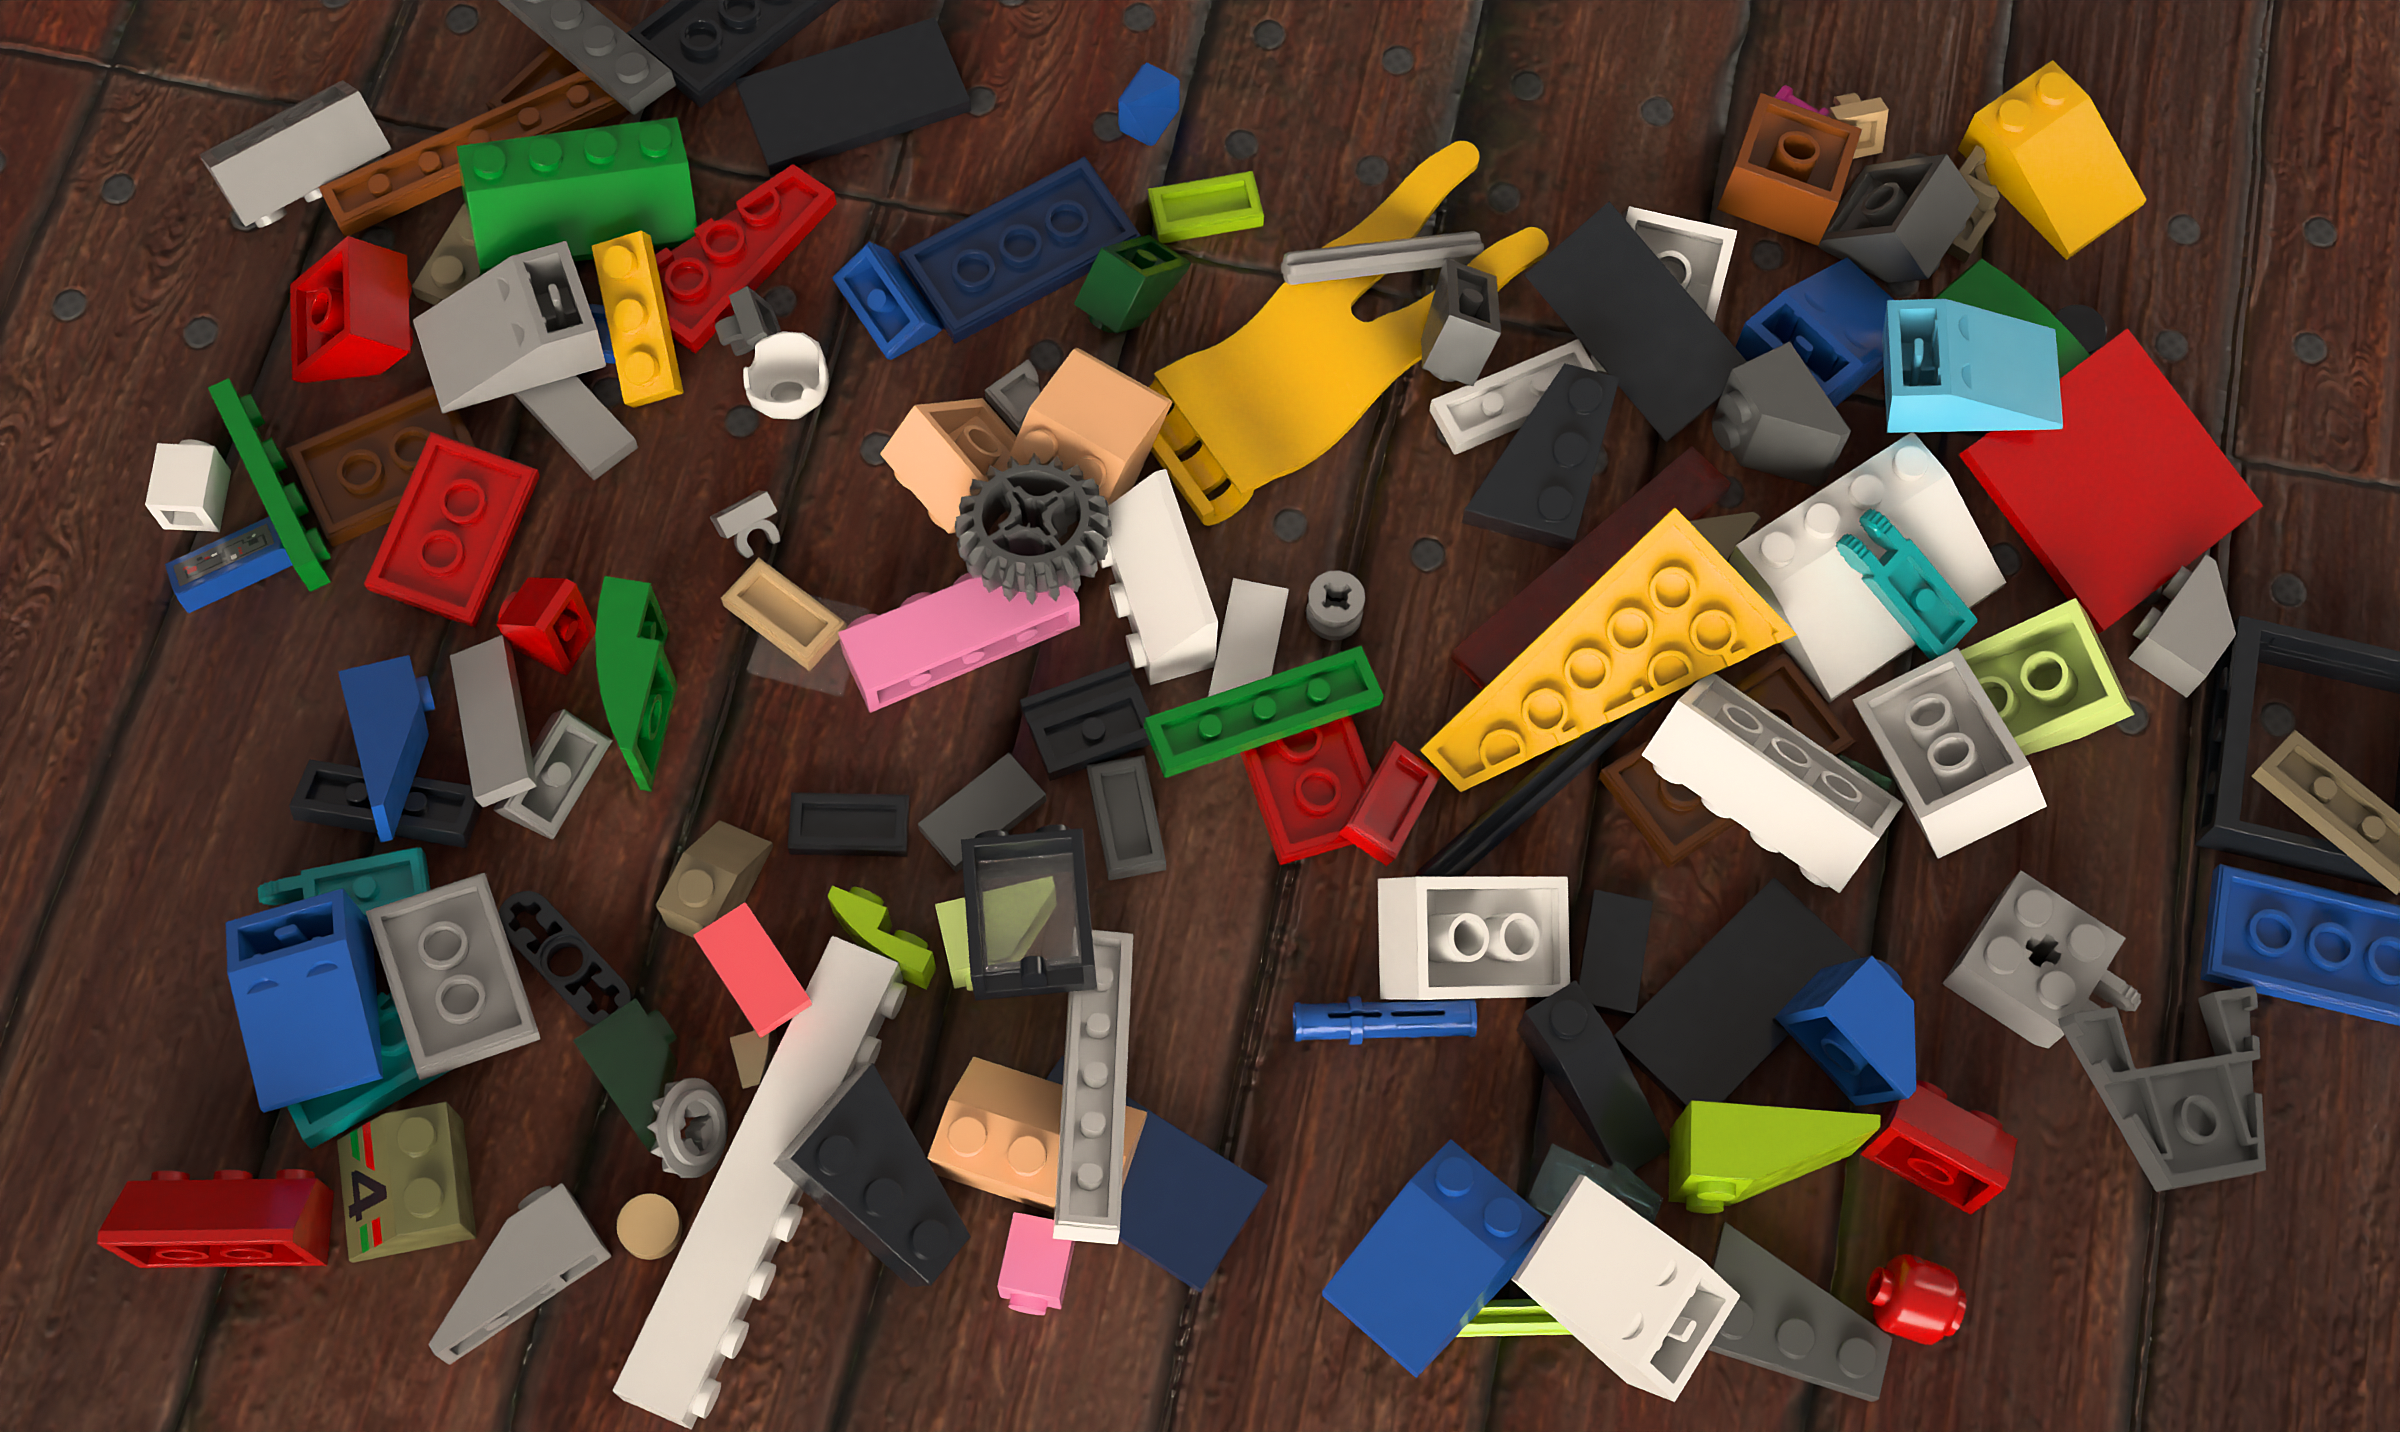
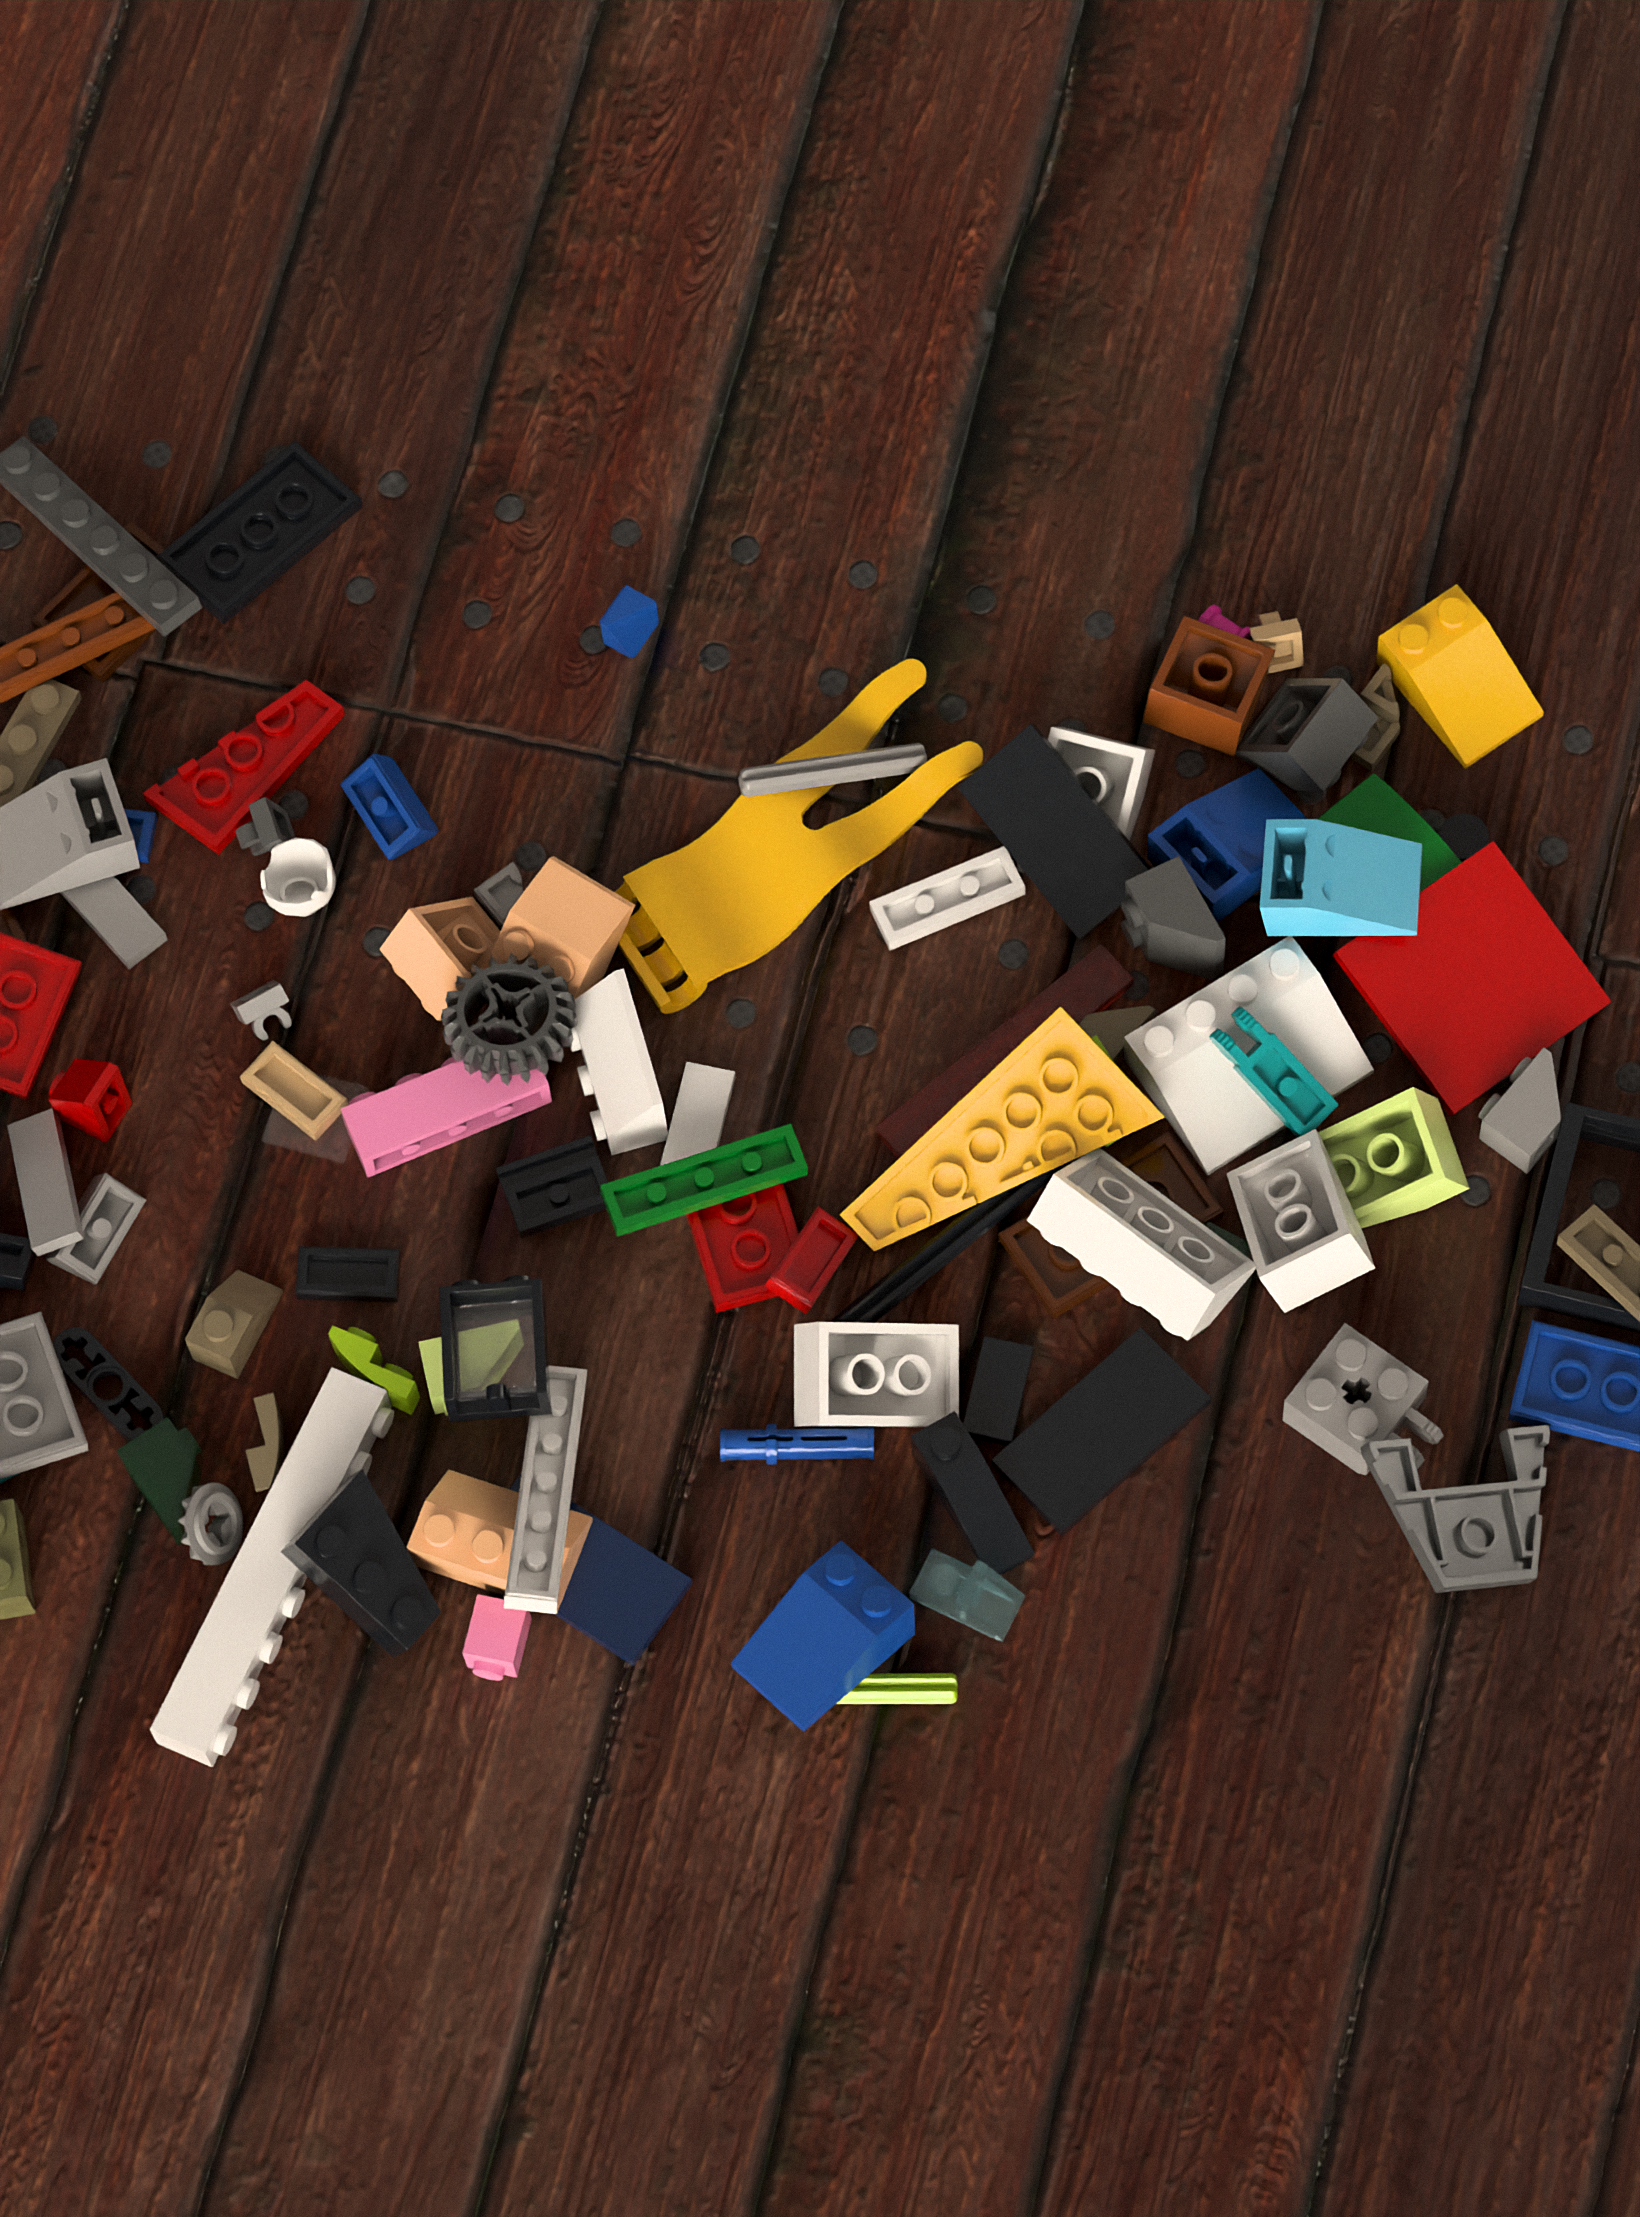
camera: 10 degrees right, 0 degrees up
(526, 1264) = (79, 1632): light grey slope -> none
(577, 190) = (117, 708): green slope -> none
(634, 673) = (166, 1142): green slope -> none
(637, 319) = (167, 825): yellow plate -> none
(649, 1226) = (178, 1605): tan tile -> none
(752, 970) = (265, 1394): coral tile -> none
(853, 95) = (361, 611): black tile -> none
(990, 802) = (471, 1255): dark grey tile -> none
(1017, 249) = (509, 757): dark blue tile -> none
(1126, 817) = (585, 1270): dark grey tile -> none
(1129, 282) = (606, 791): dark green slope -> none
(1205, 207) = (678, 718): lime tile -> none
(1332, 618) = (778, 1097): light grey wheel -> none
(1461, 323) = (898, 831): dark grey slope -> none
(1549, 464) = (967, 961): black wedge -> none
(1626, 1290) = (976, 1661): white slope -> none
(1742, 1150) = (1095, 1554): lime slope -> none
(1794, 1324) = (1118, 1696): dark grey wing -> none
(1857, 1029) = (1189, 1453): blue slope -> none
(1916, 1299) = (1226, 1677): red head -> none
(1943, 1148) = (1257, 1552): red slope -> none

